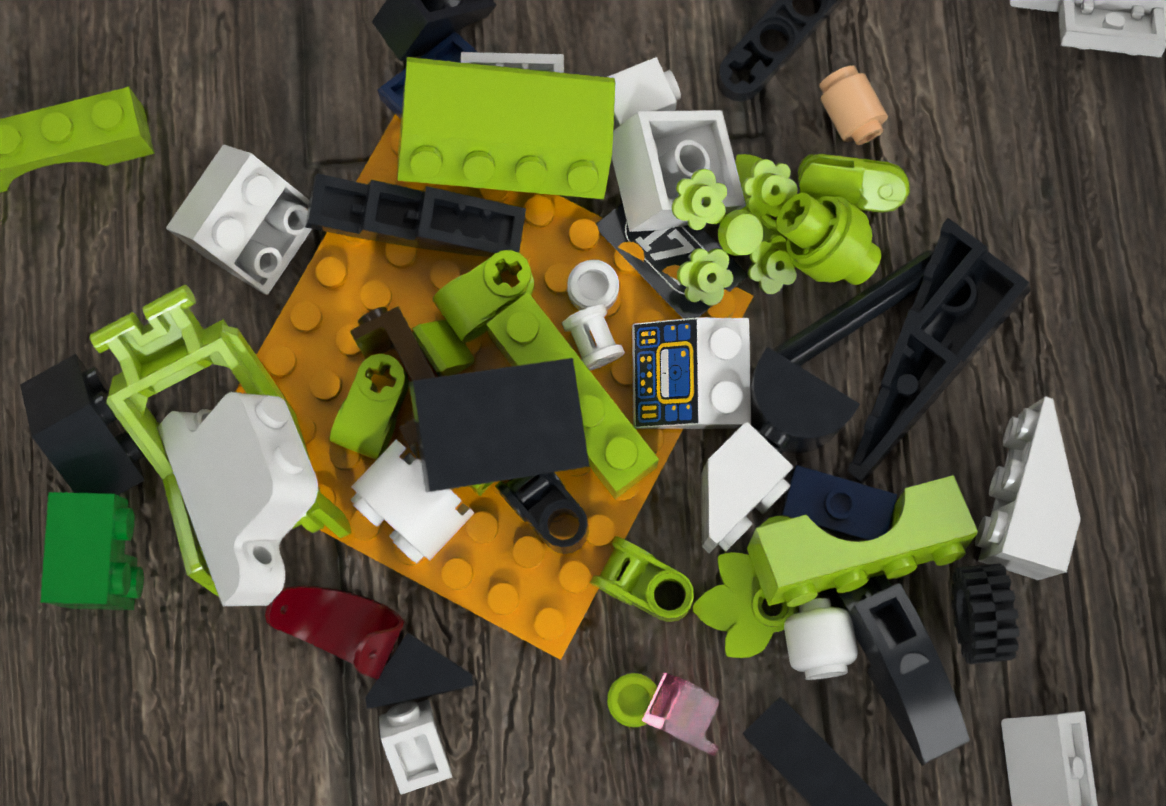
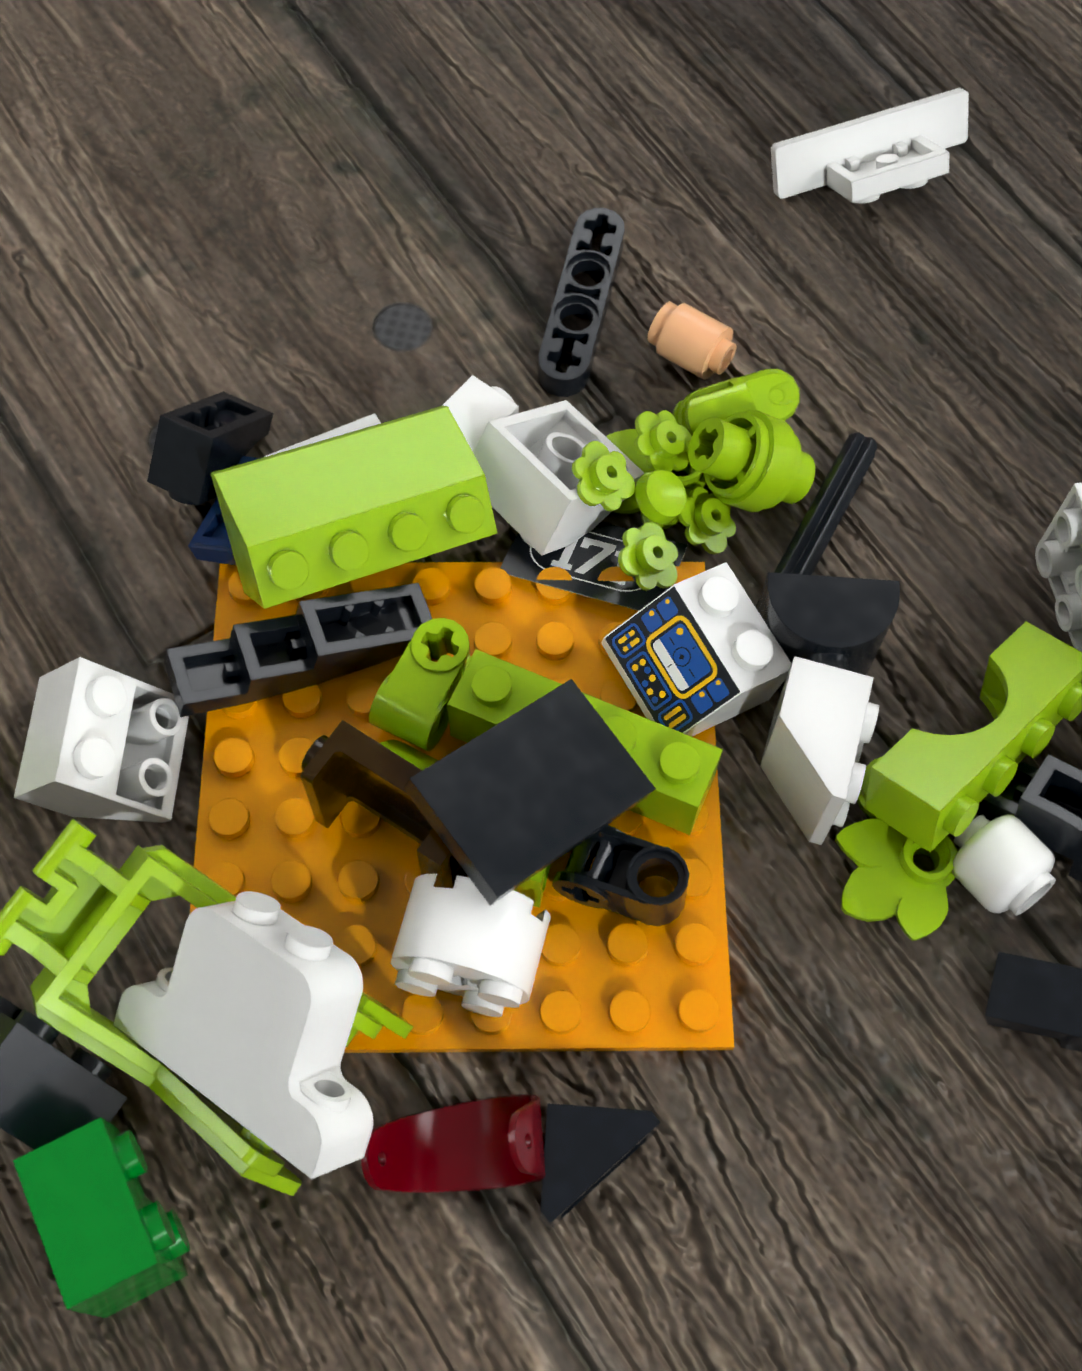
camera: 30 degrees left, 15 degrees down
(370, 417) = (363, 874): lime piece -> none
(413, 745) = (627, 1243): white bracket -> none
(580, 325) = (562, 663): white bush -> none
(592, 284) = (535, 627): white tile -> none
(630, 699) = (842, 1047): lime tile -> none
(641, 580) = (773, 905): lime piece -> none
(683, 712) = (906, 1026): clear pink panel -> none
(839, 504) = (935, 709): dark blue plate -> none
(955, 313) = (916, 481): black wedge -> none

